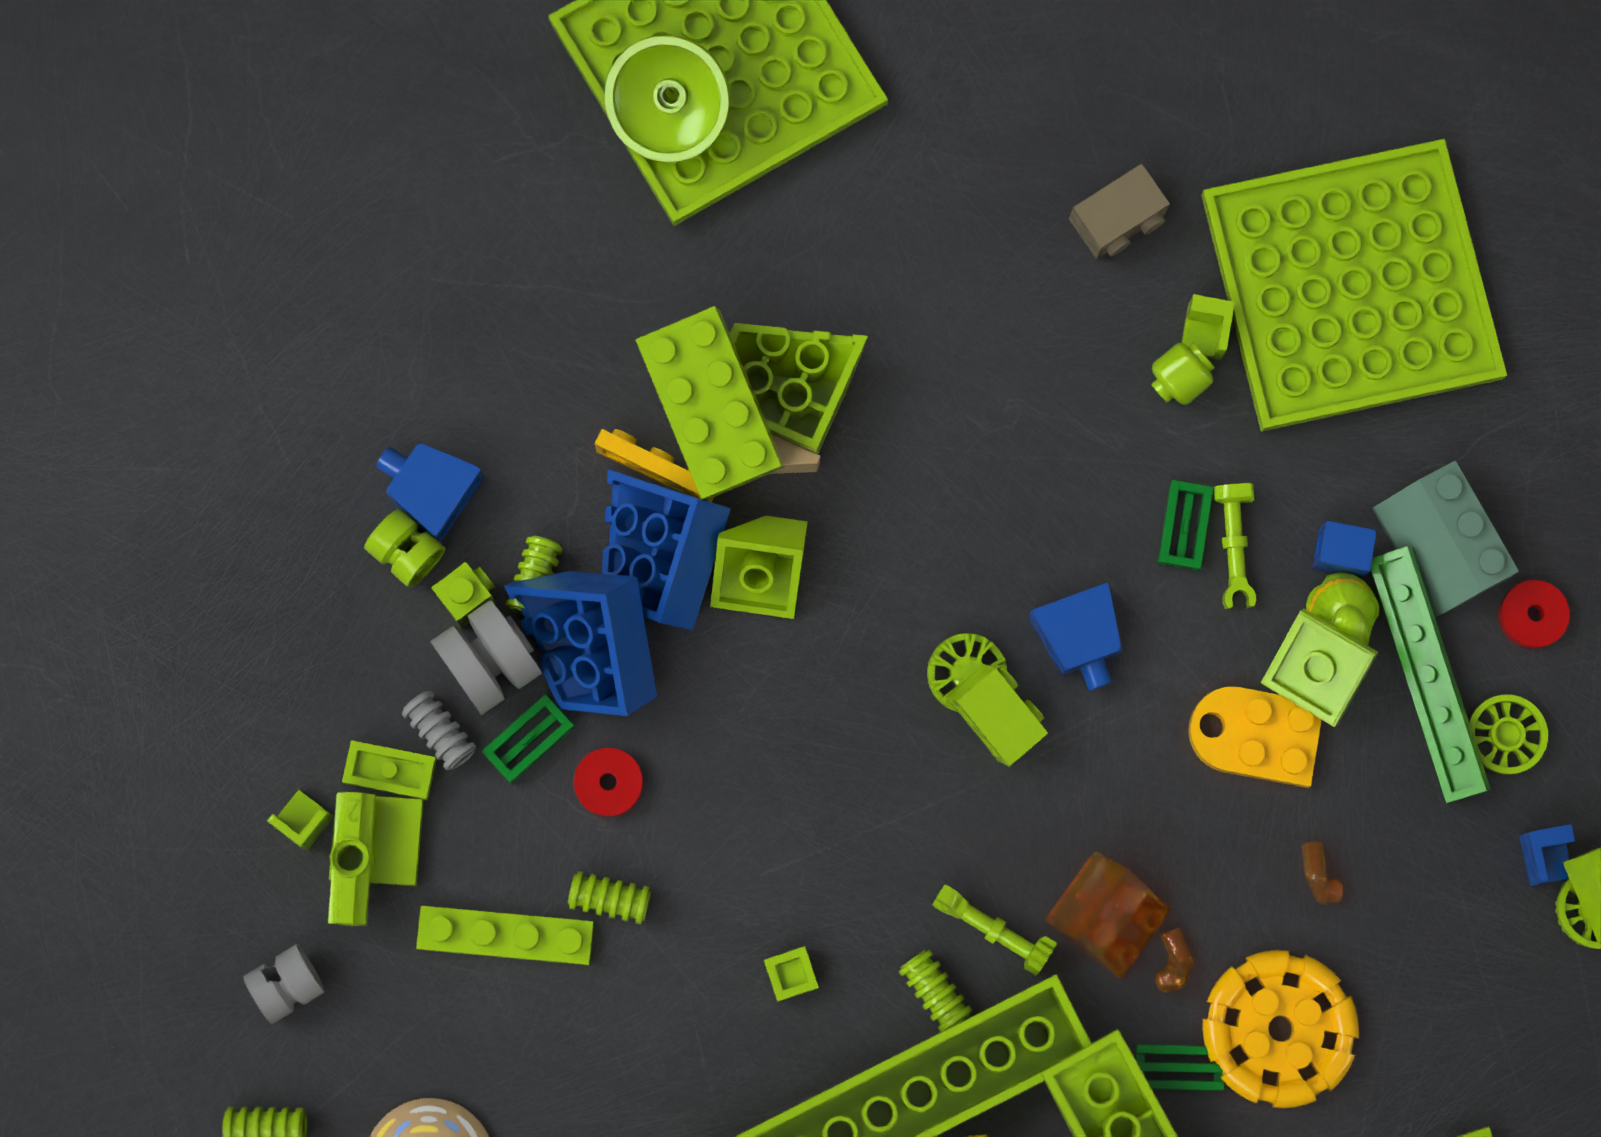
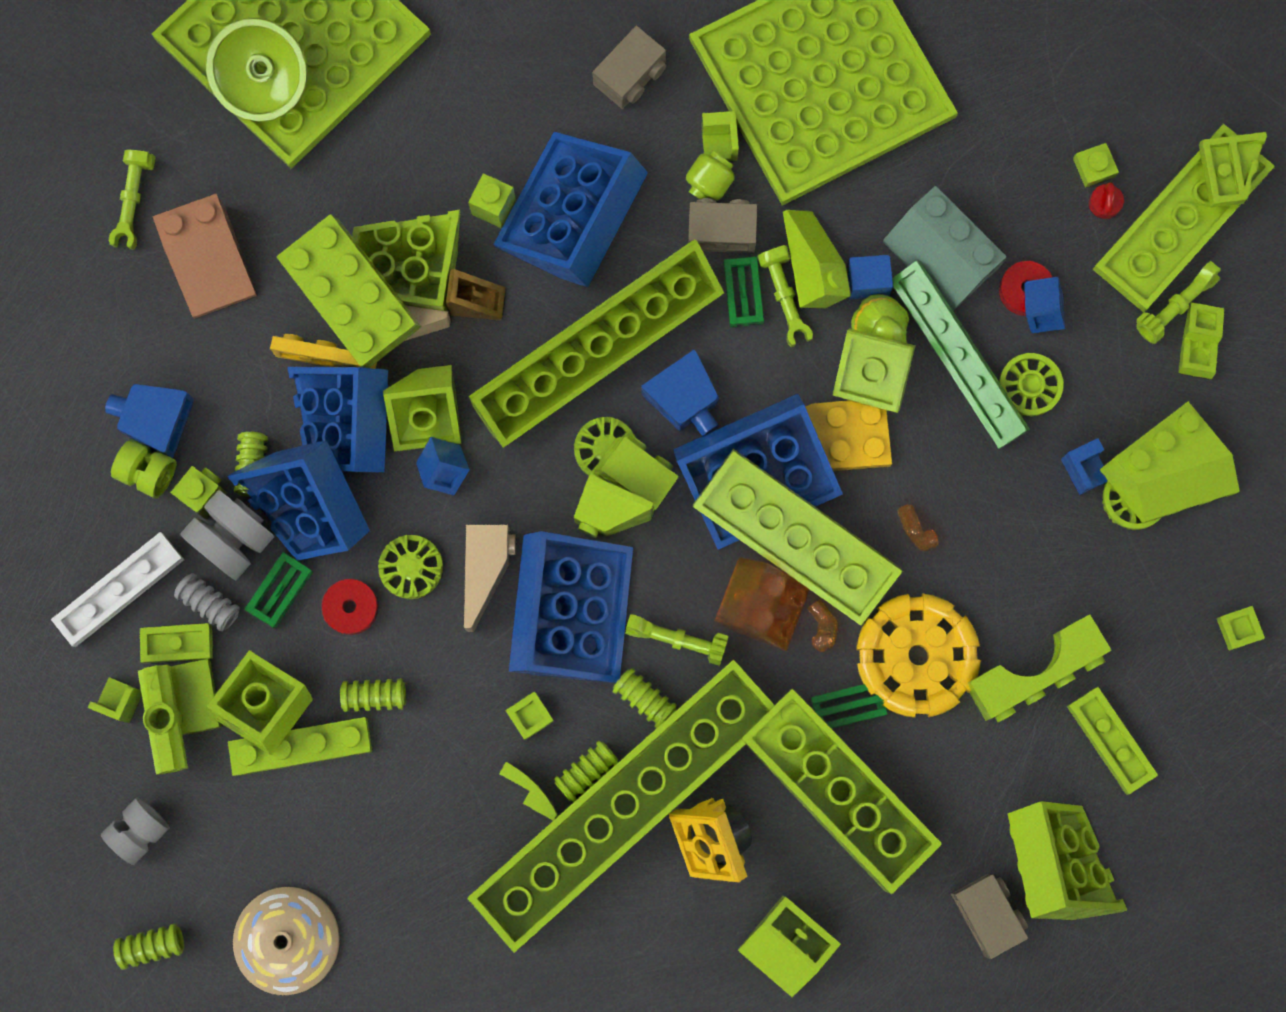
camera: 10 degrees left, 0 degrees up
(335, 686) = (117, 589): none -> white plate
(473, 870) = (260, 702): none -> lime brick
(489, 168) = (136, 161): none -> lime piece
(543, 307) = (205, 255): none -> nougat slope
(693, 753) = (410, 566): none -> lime wheel
(764, 641) = (442, 466): none -> blue panel
(773, 1077) = (536, 797): none -> lime slope
(786, 775) = (485, 564): none -> tan slope
(842, 1059) = (586, 771): none -> lime piece
(857, 445) = (474, 297): none -> pearl gold slope
(874, 857) = (570, 608): none -> blue slope
(909, 332) = (492, 200): none -> lime brick
(953, 750) = (610, 509): none -> lime slope
(992, 546) = (597, 344): none -> lime slope
(1003, 366) = (572, 207): none -> blue slope
(1145, 752) = (777, 441): none -> blue slope
(1172, 846) = (797, 537): none -> lime plate
(1181, 438) = (723, 225): none -> dark tan brick
(1283, 514) = (816, 264): none -> lime slope
(1473, 1072) = (1074, 648): none -> lime arch
(1550, 642) = (1044, 305): none -> blue panel

